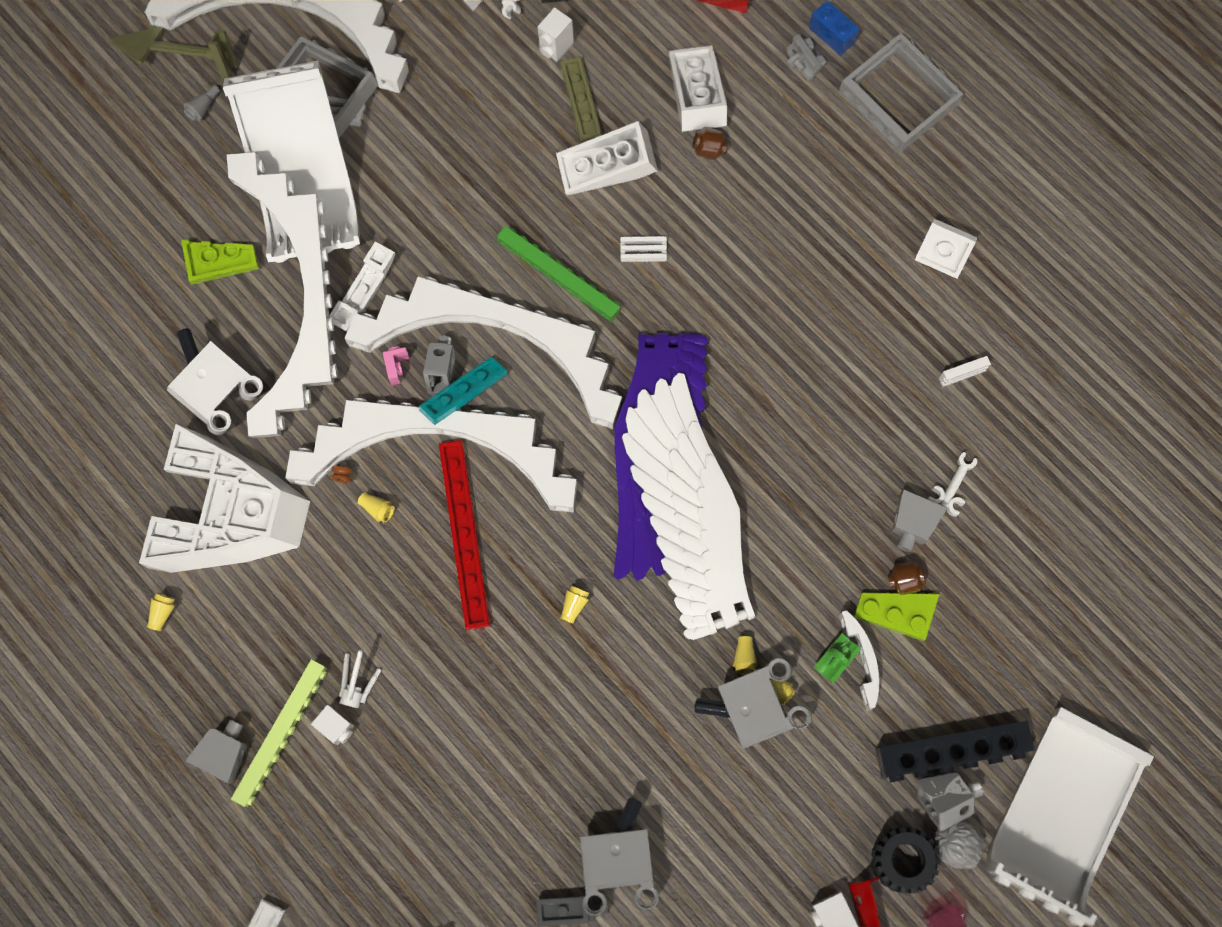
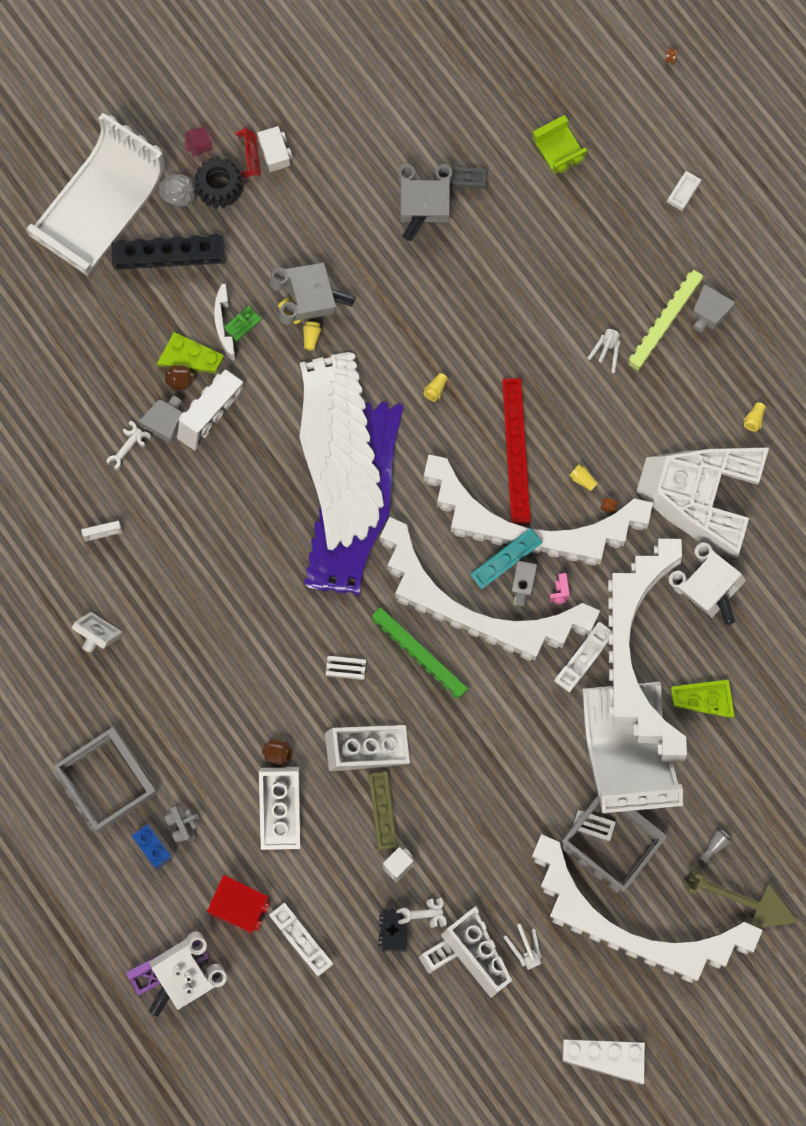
camera: 175 degrees left, 0 degrees up
(333, 725) = (625, 319): white brick -> none
(860, 539) = (208, 408): none -> white wedge
(948, 798) = (180, 217): light grey torso -> none

